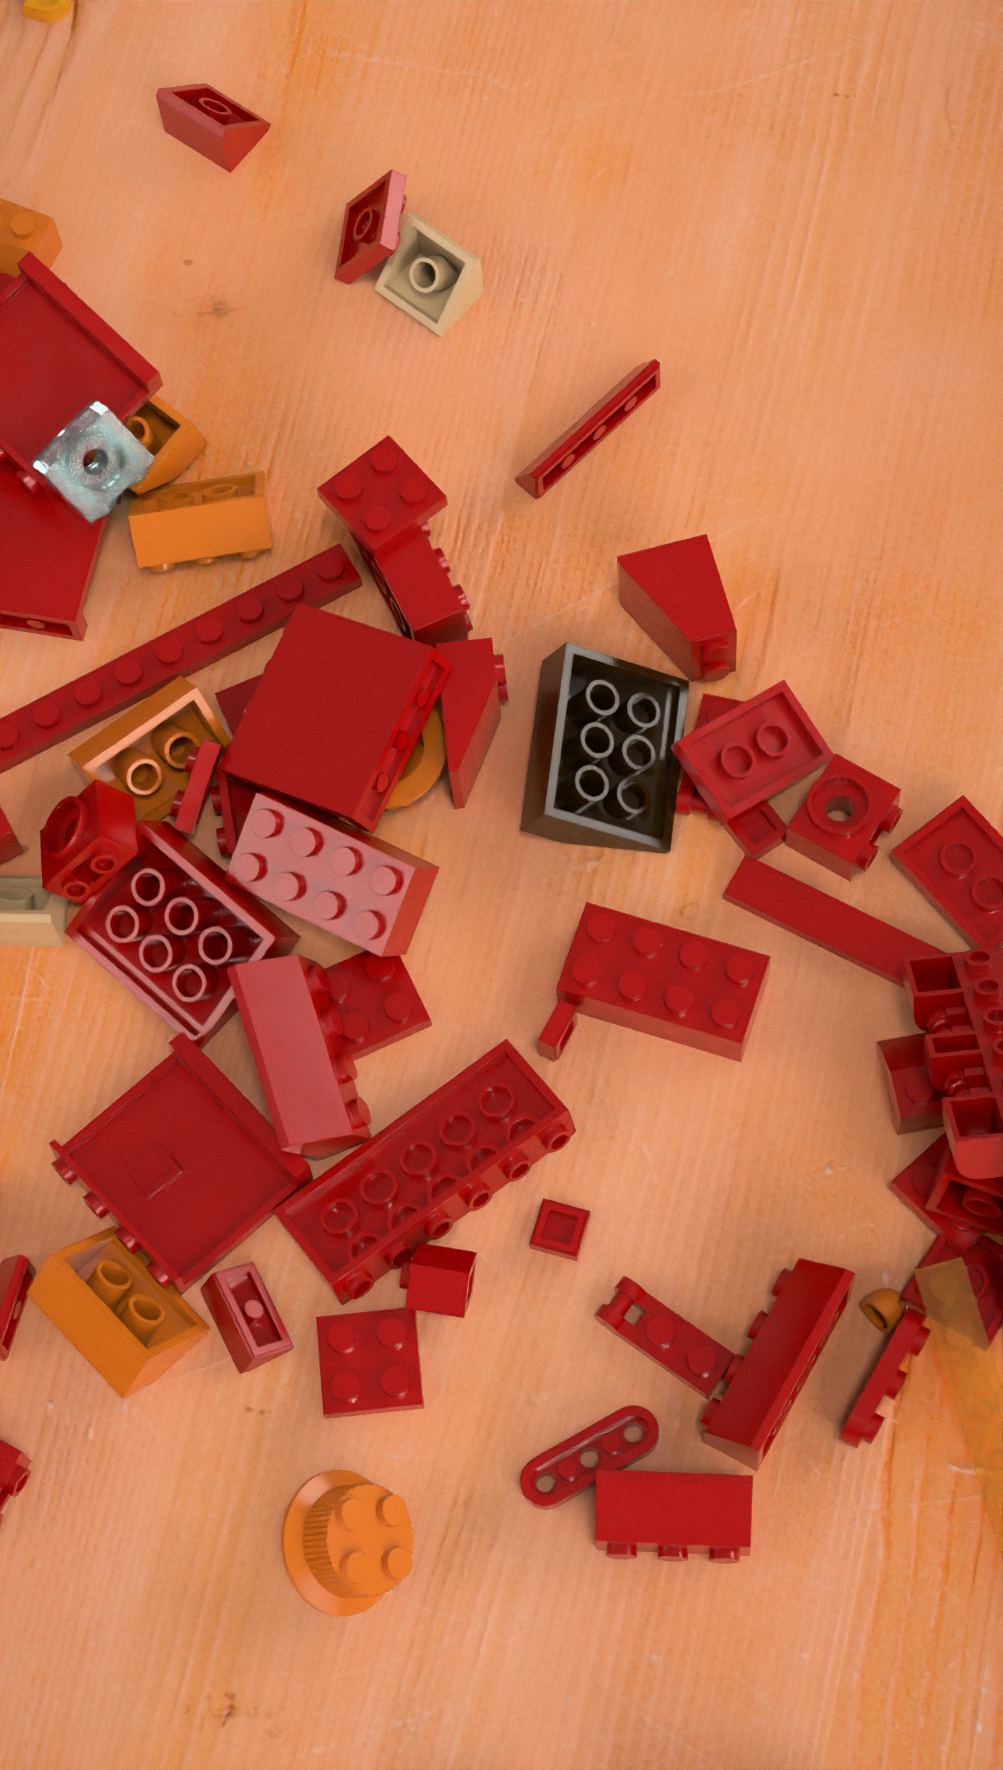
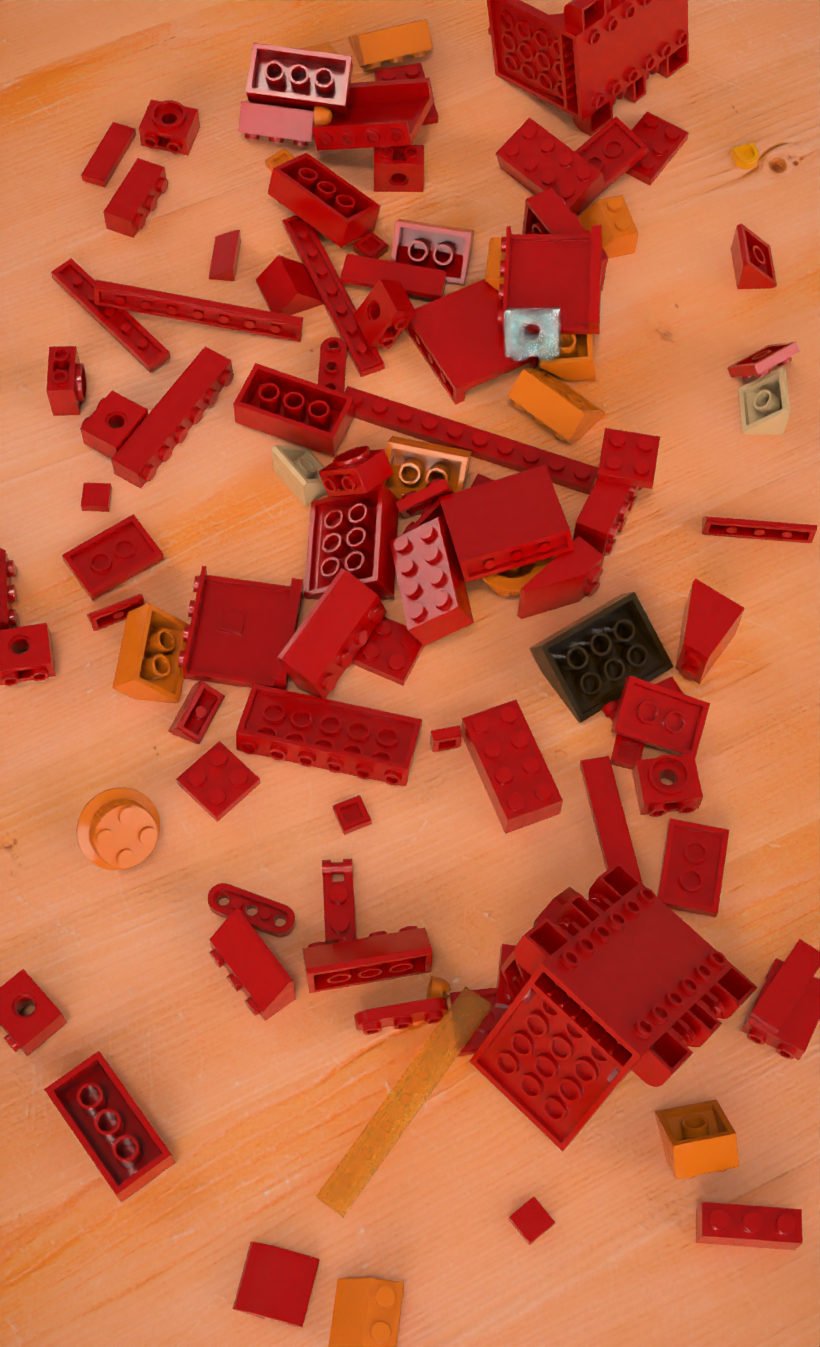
camera: 40 degrees right, 5 degrees down
(439, 1279) = (280, 778): red brick -> none

